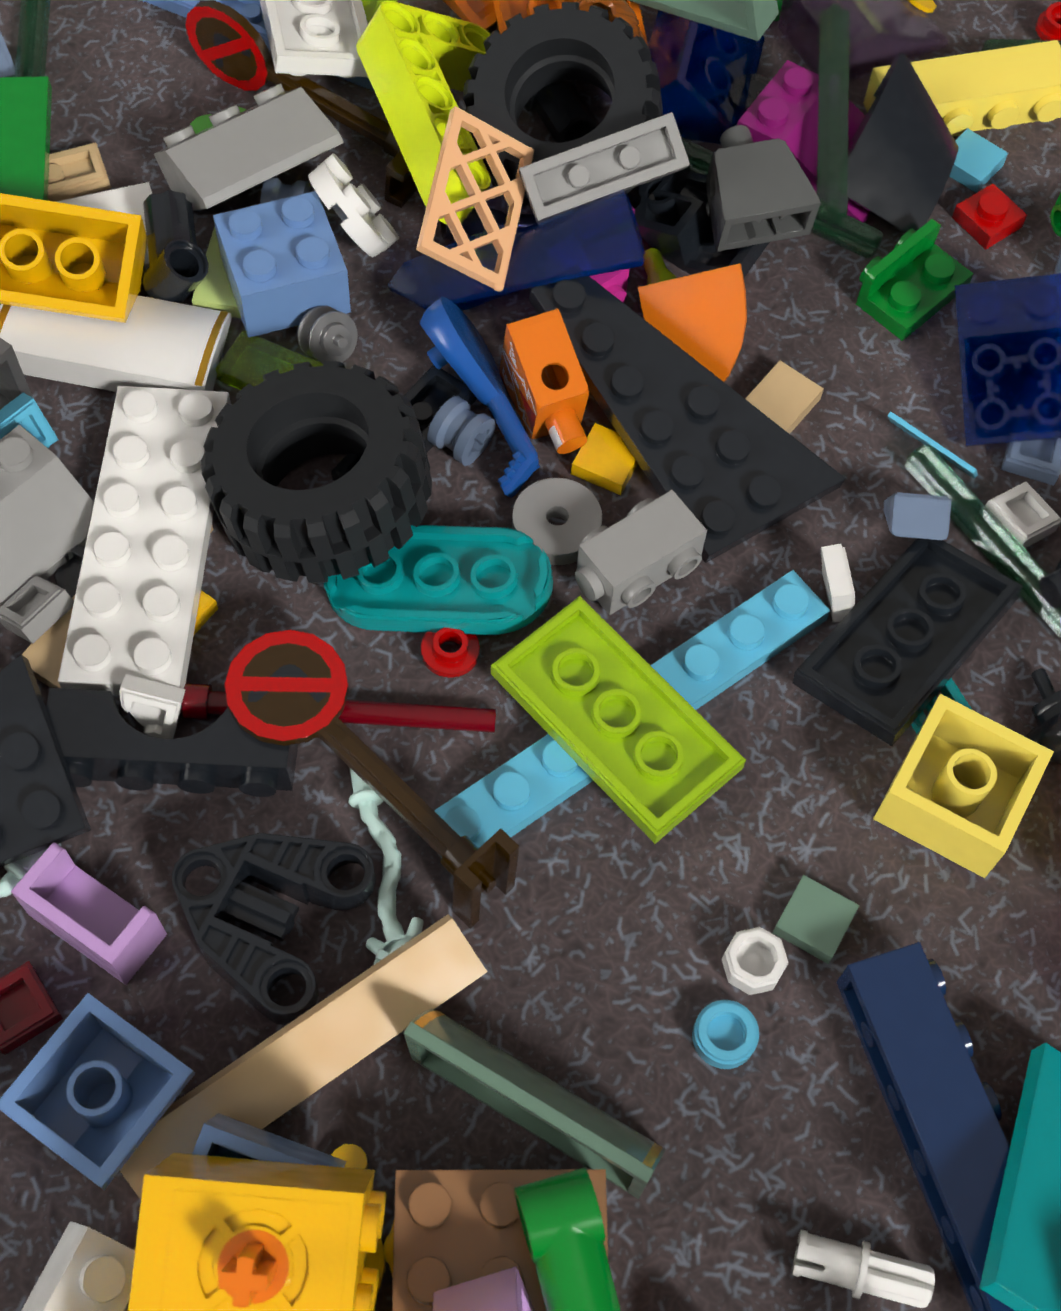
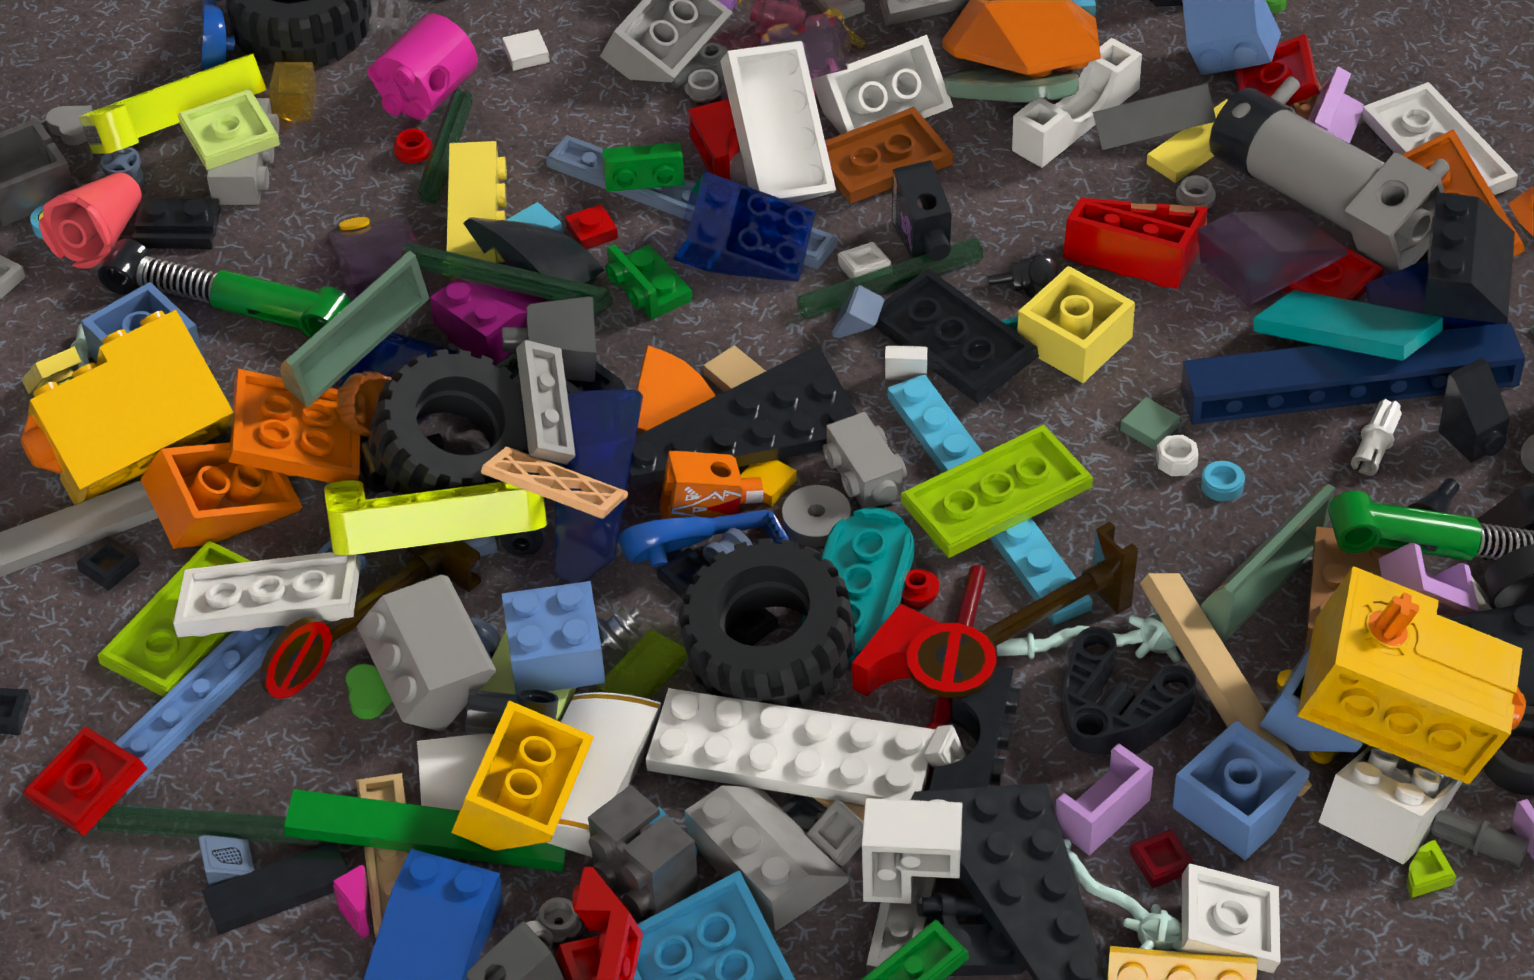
camera: 75 degrees left, 15 degrees down
(351, 631) = (885, 653): none -> red arch
(353, 206) = (488, 590): white plate -> none
(961, 464) = (791, 299): medium azure window -> none

